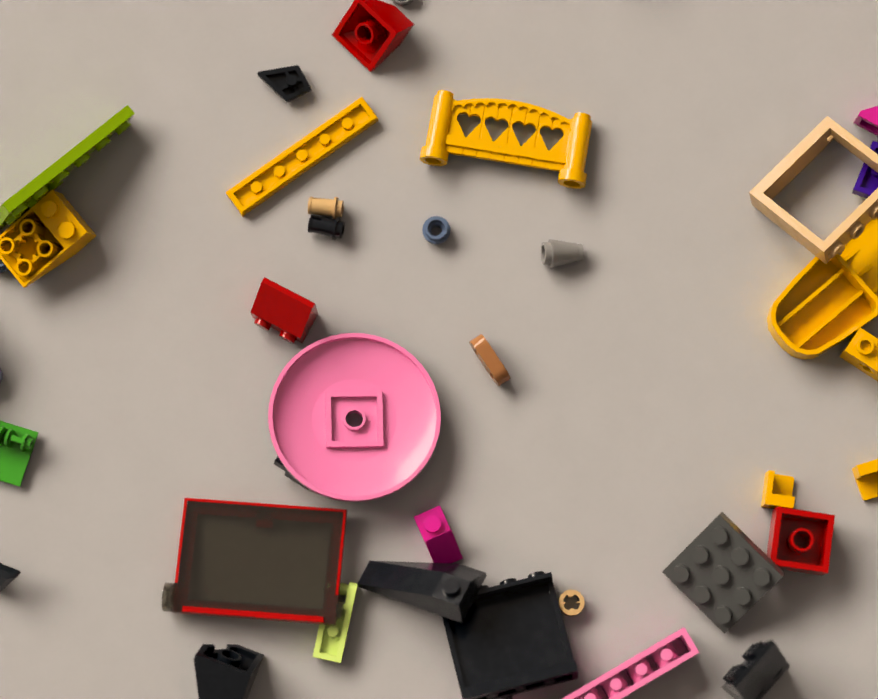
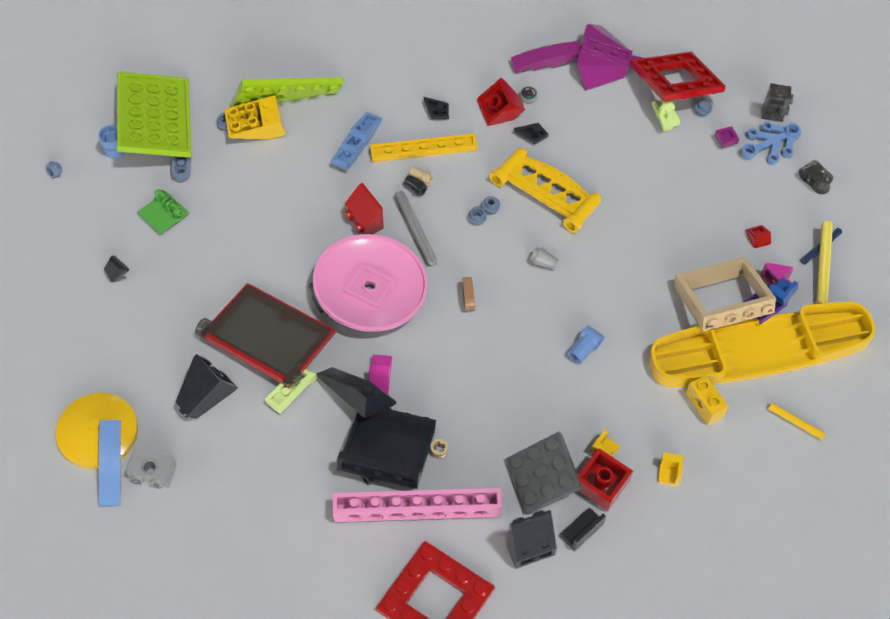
camera: 25 degrees right, 20 degrees down
(204, 195) = (357, 140): none -> medium blue slope
(363, 293) = (416, 228): none -> light grey axle
(440, 54) = (533, 132): none -> black piece
(445, 211) = (491, 209): none -> sand blue plate
(682, 348) = (588, 341): none -> medium blue piece
(804, 616) = (583, 528): none -> black panel
(825, 64) = (759, 236): none -> red slope

